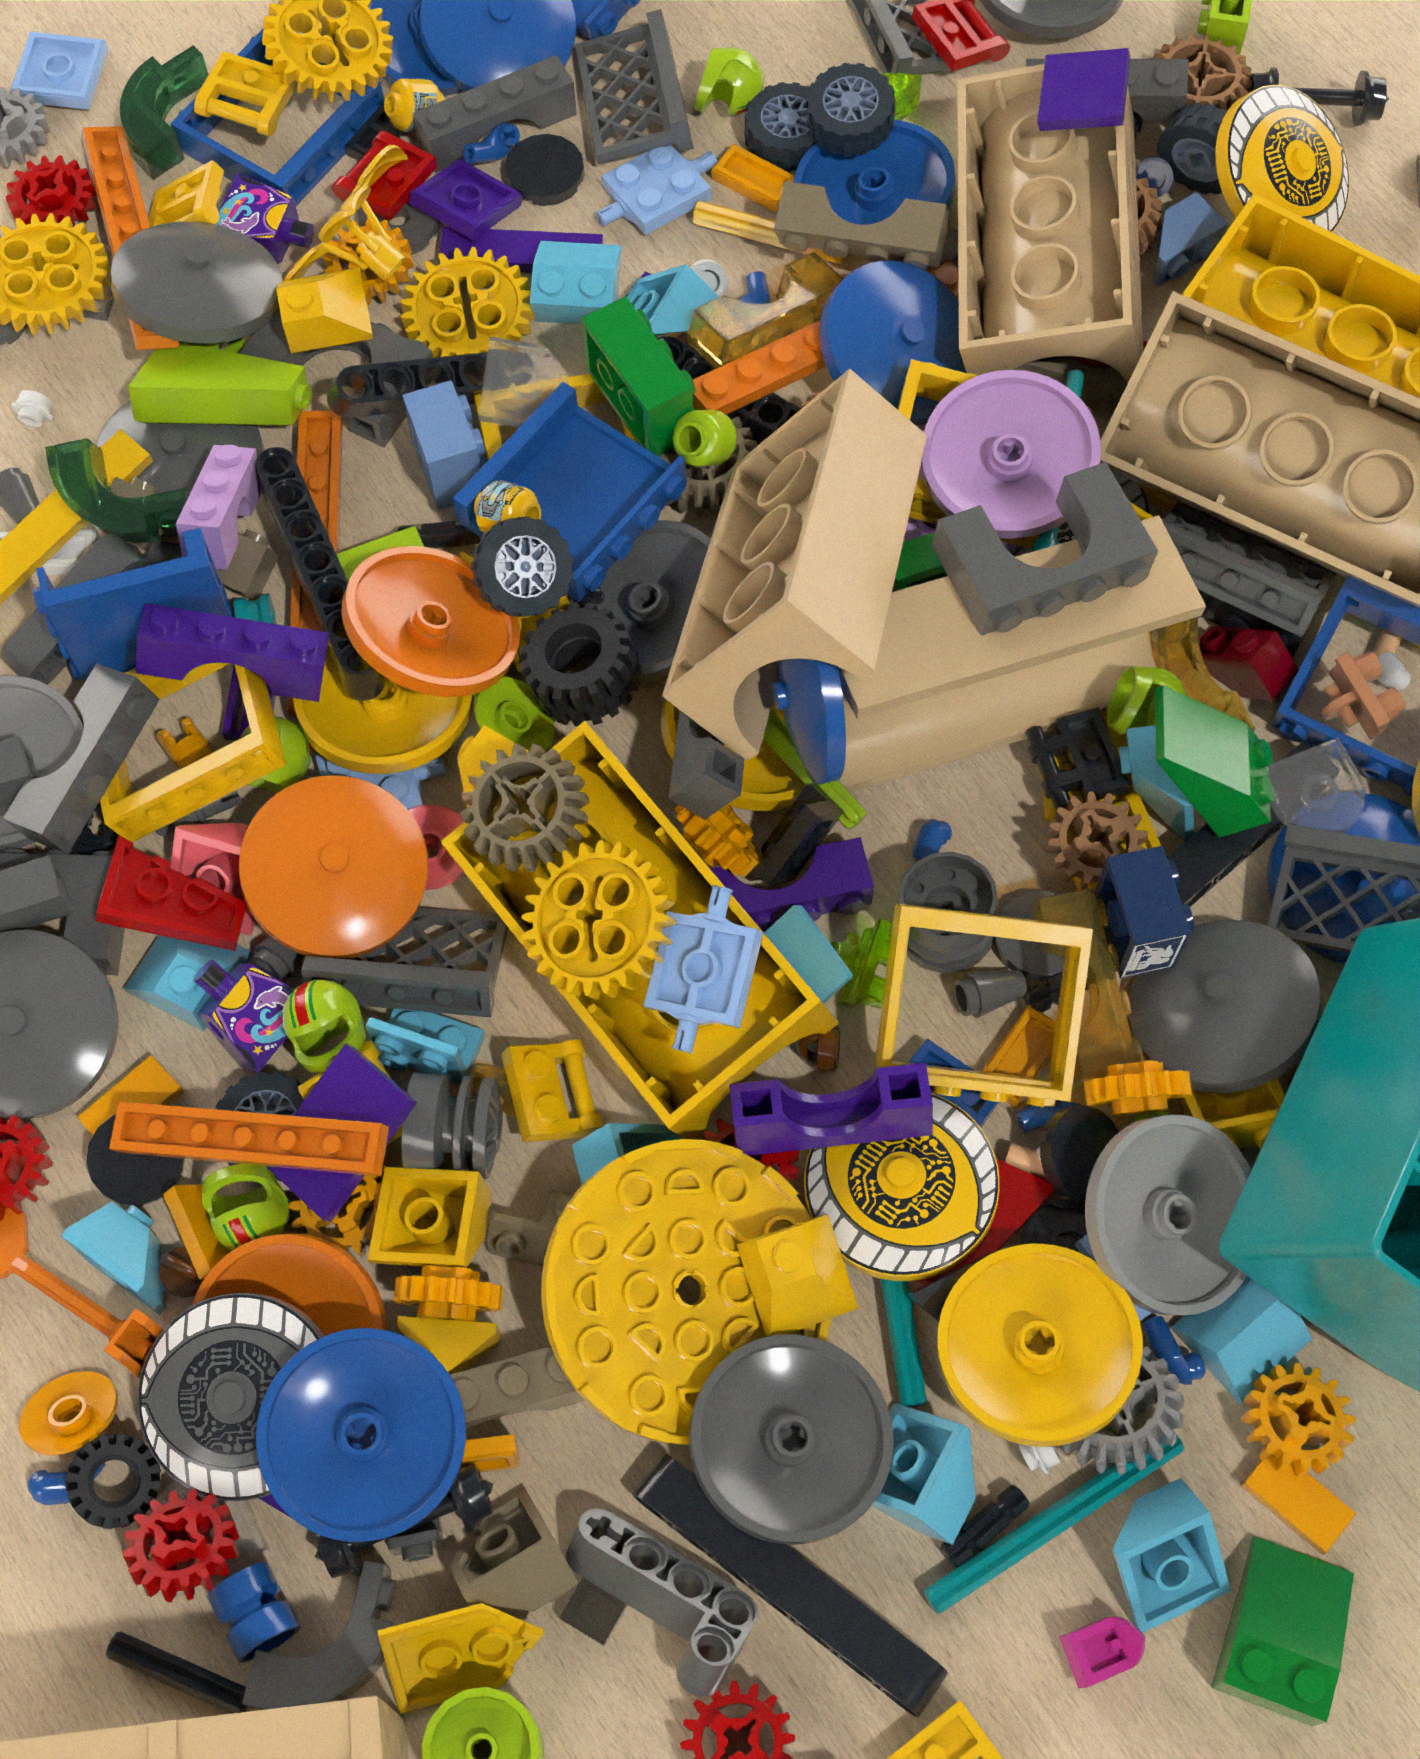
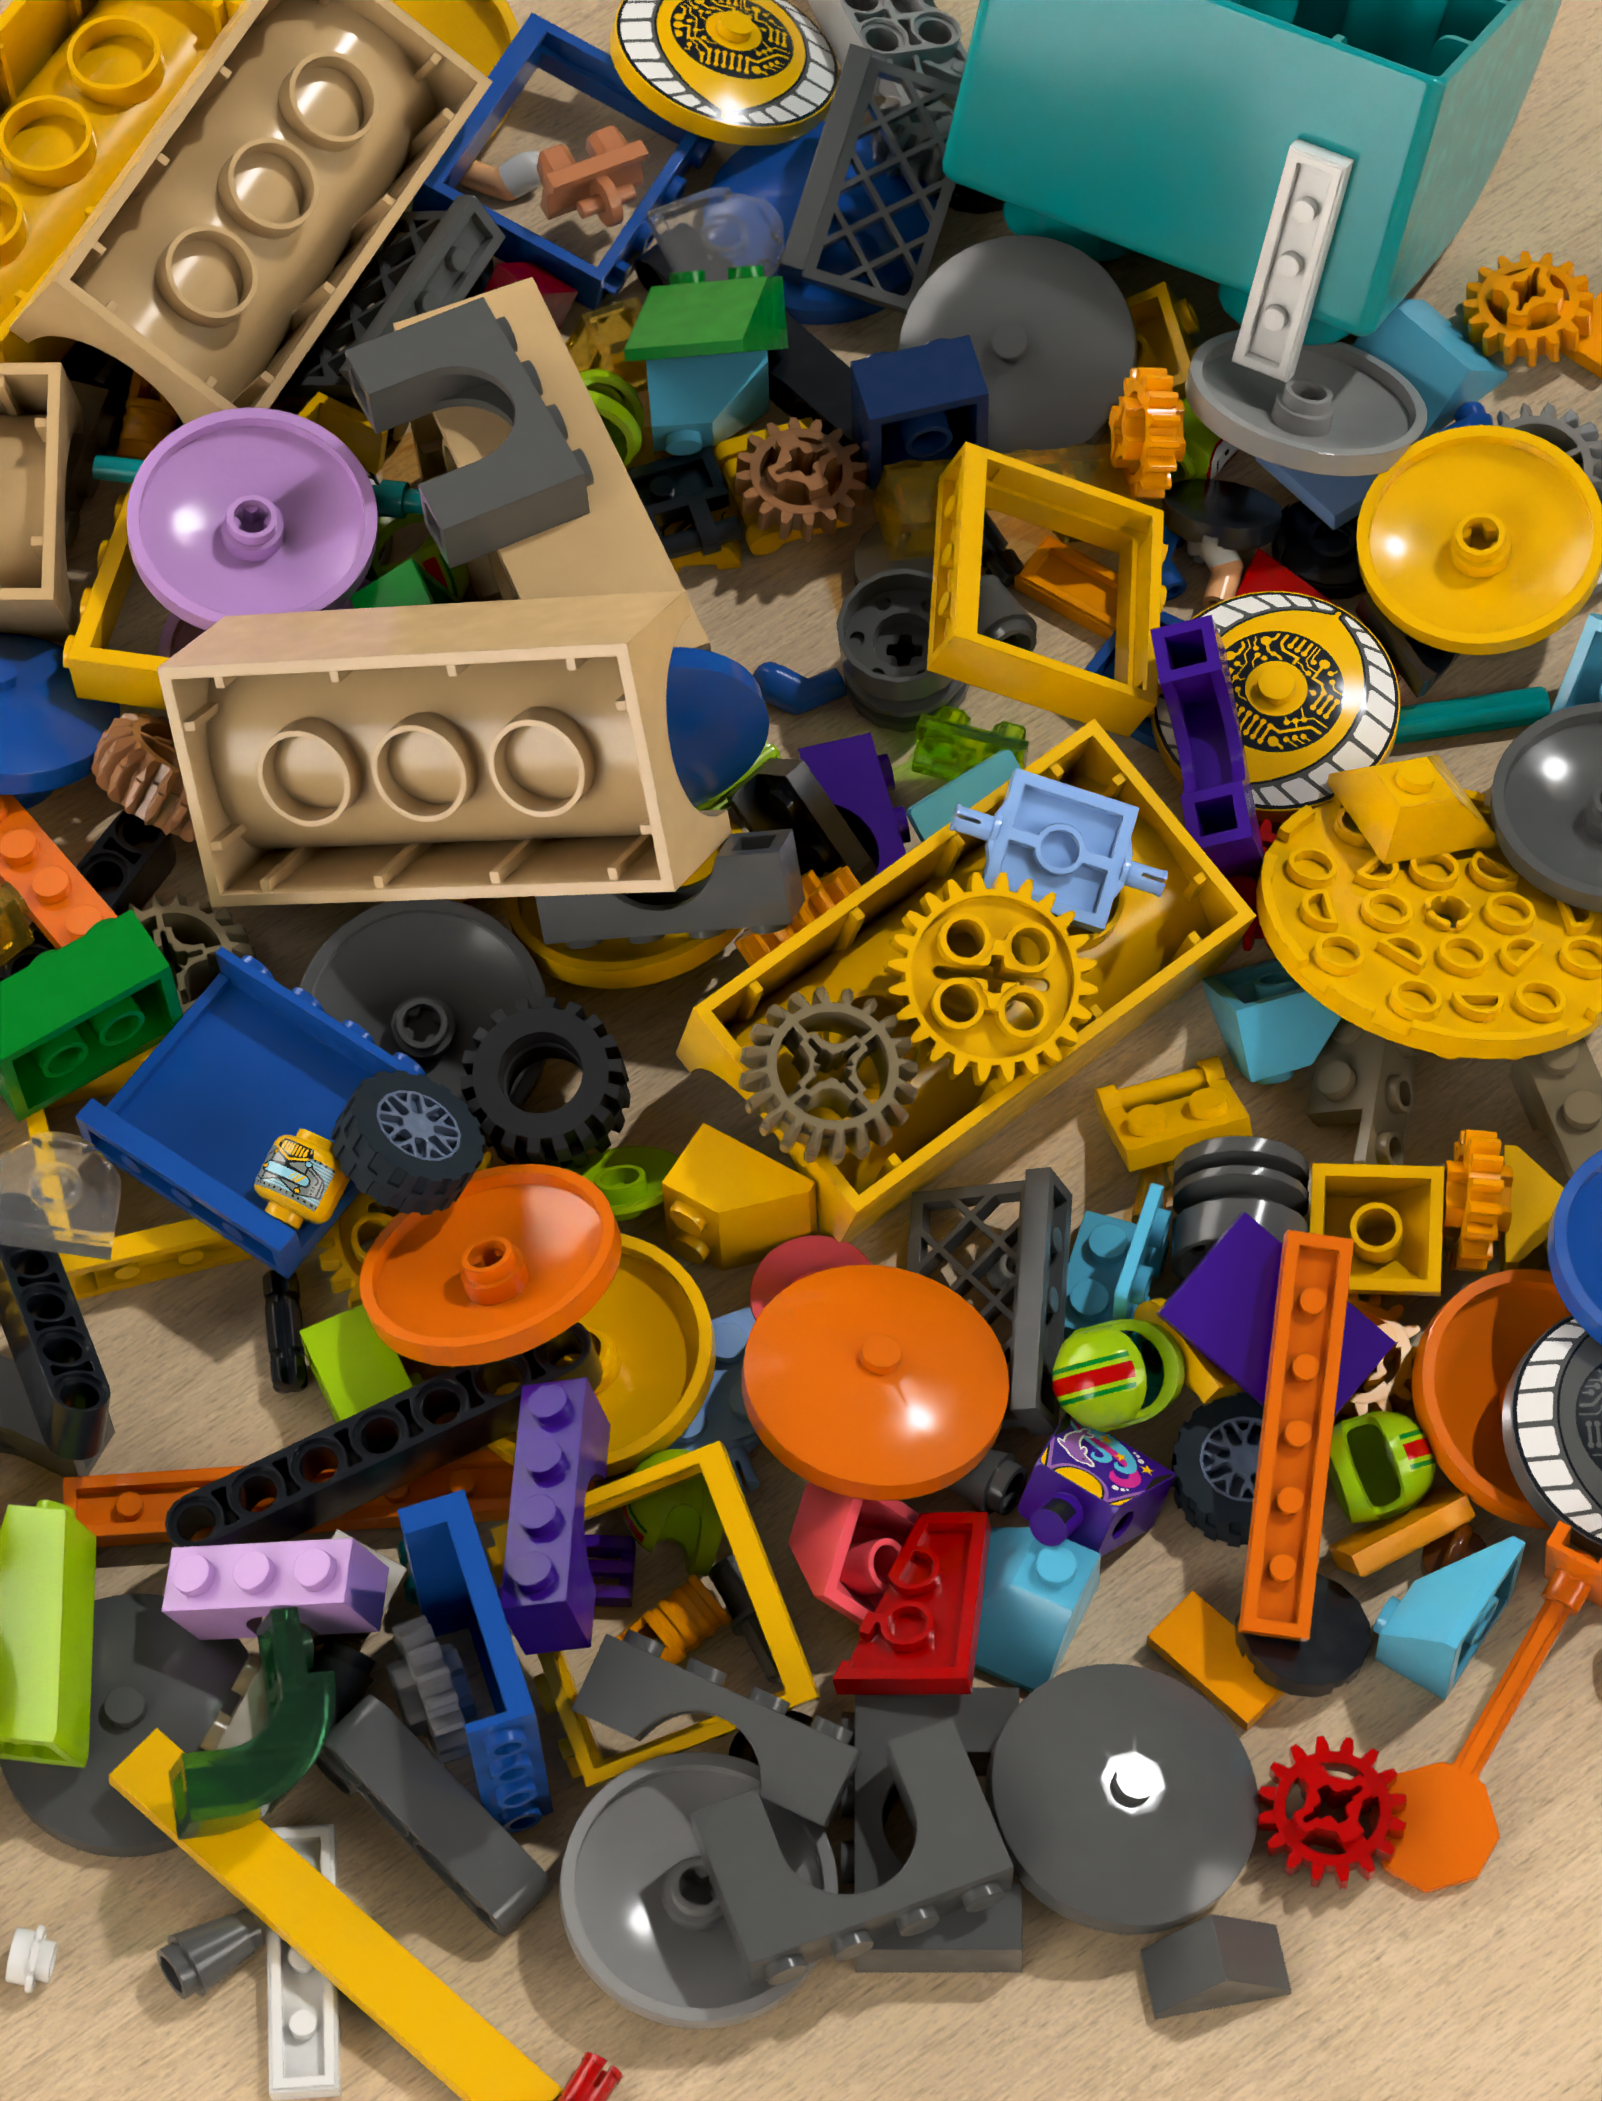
camera: 90 degrees left, 5 degrees down
(444, 439) = (150, 1306): medium blue brick -> none
(704, 437) = (182, 929): lime head -> none
(1268, 1177) = (1292, 260): none -> white tile

